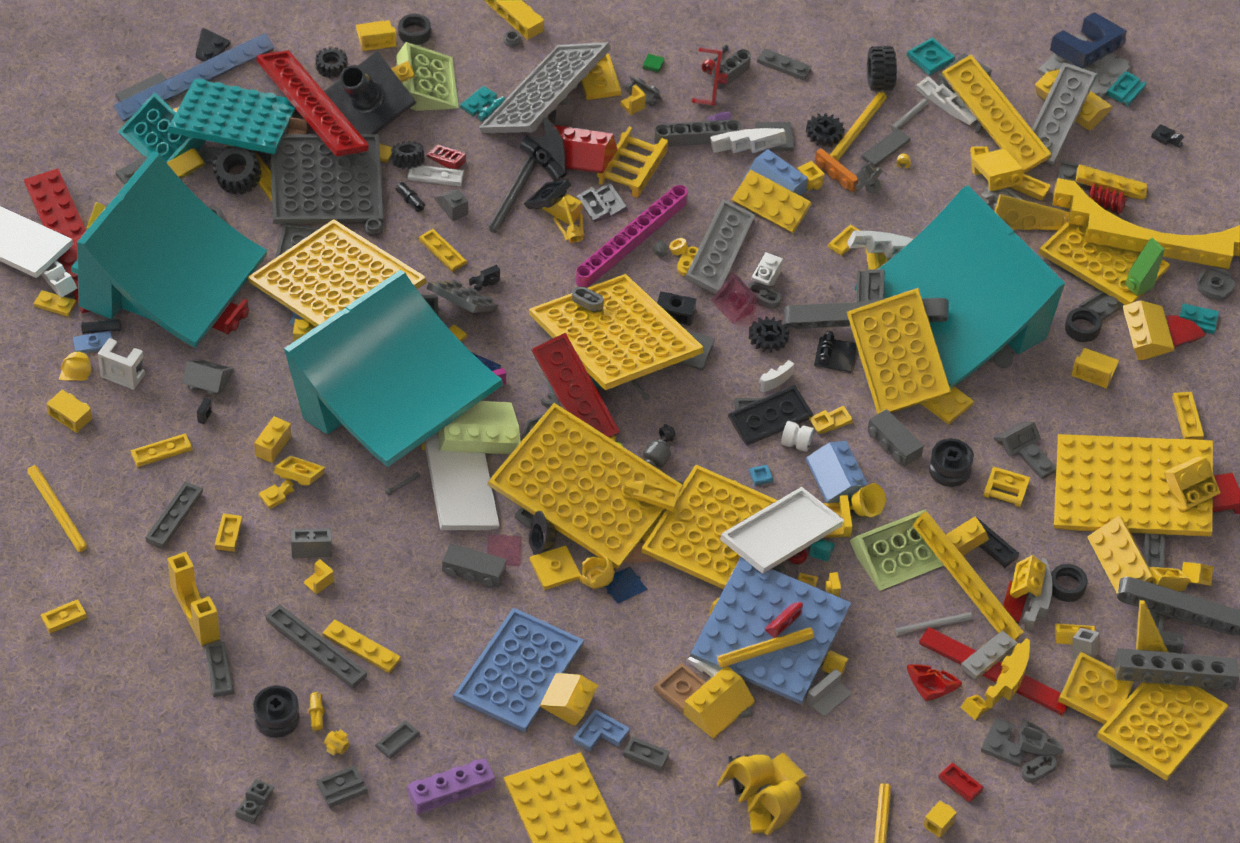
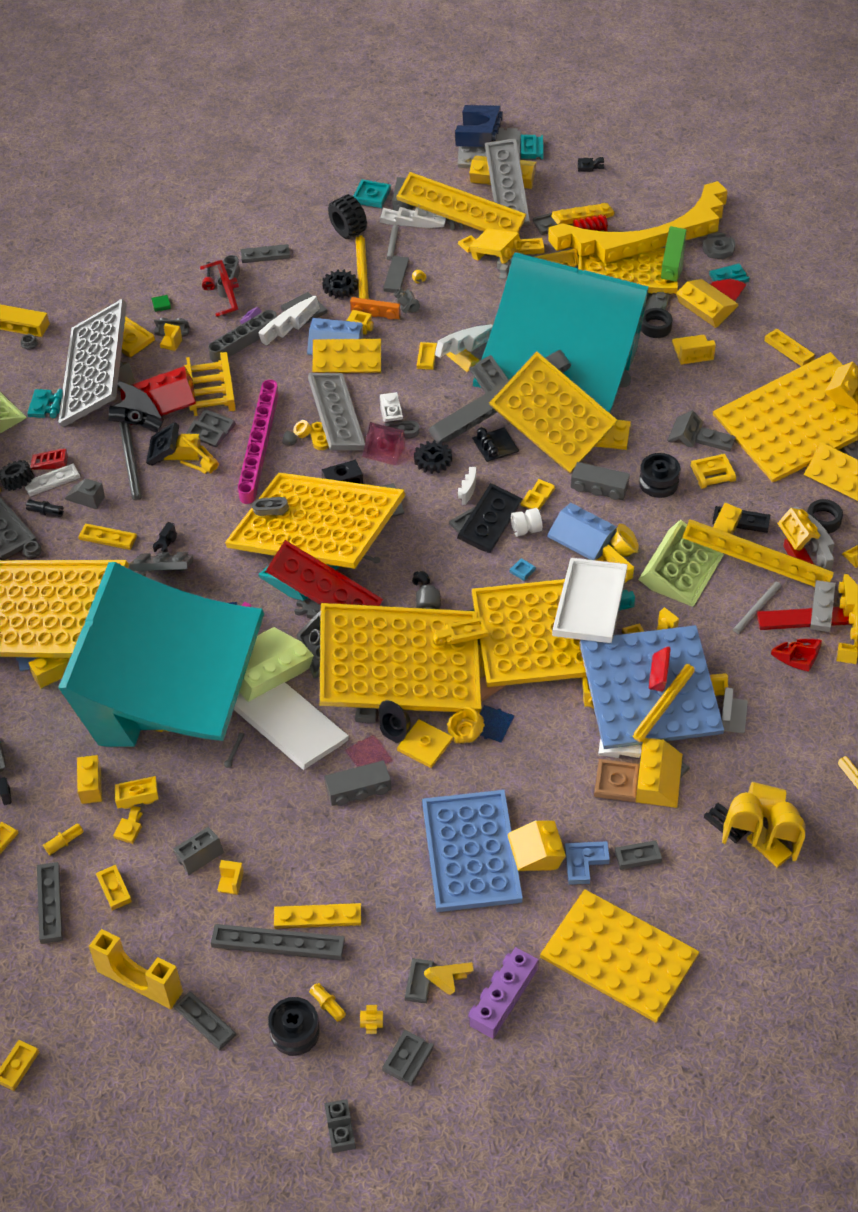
camera: 30 degrees left, 0 degrees up
(219, 473) = (62, 839): none -> yellow axle
(415, 743) = (443, 975): none -> yellow slope

